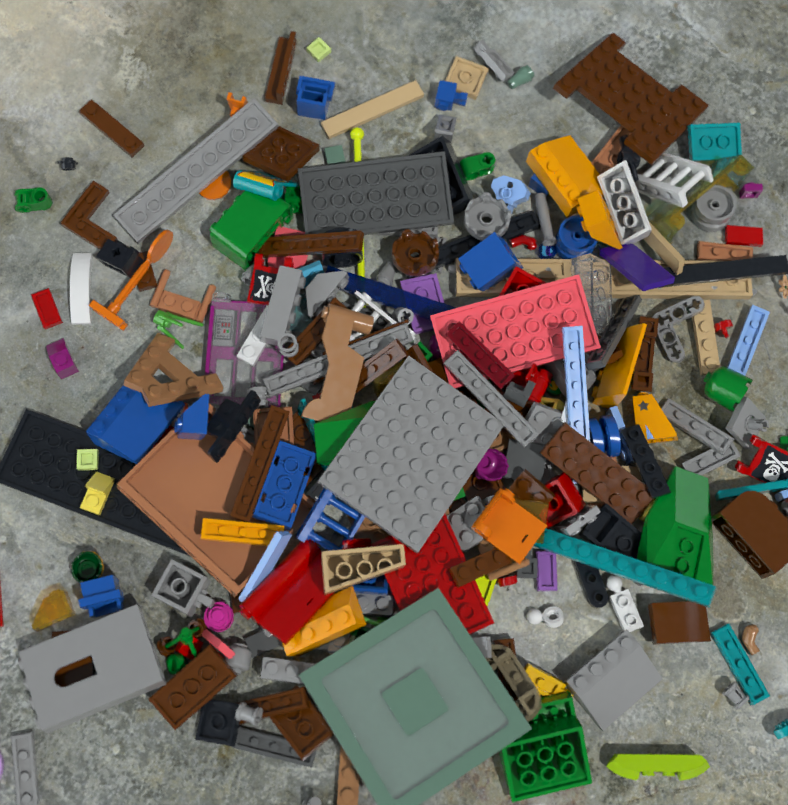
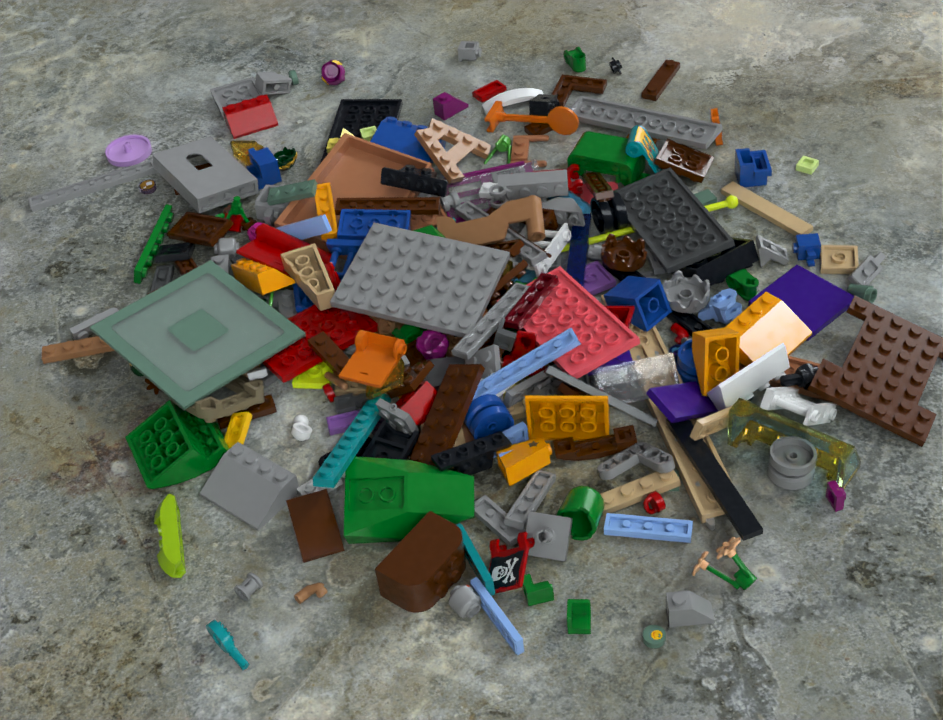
camera: 90 degrees right, 30 degrees down
(65, 746) = (147, 186): none -> tile
(183, 742) = (152, 245): none -> green plate
(194, 420) = (409, 150): blue slope -> none
(200, 565) = (292, 192): none -> sand green plate
(218, 644) = (235, 229): coral tile -> none
(249, 714) = (181, 259): light grey bush -> none
(281, 69) = (778, 146): reddish brown fence -> none
(397, 313) = (557, 258): light grey bush -> none
(511, 127) = (809, 297): none -> dark purple tile
(714, 141) = (877, 449): teal plate -> none
(722, 252) = (746, 485): nougat tile -> none
(740, 664) = (282, 590): teal tile -> none
(744, 236) = (778, 504): red tile -> none

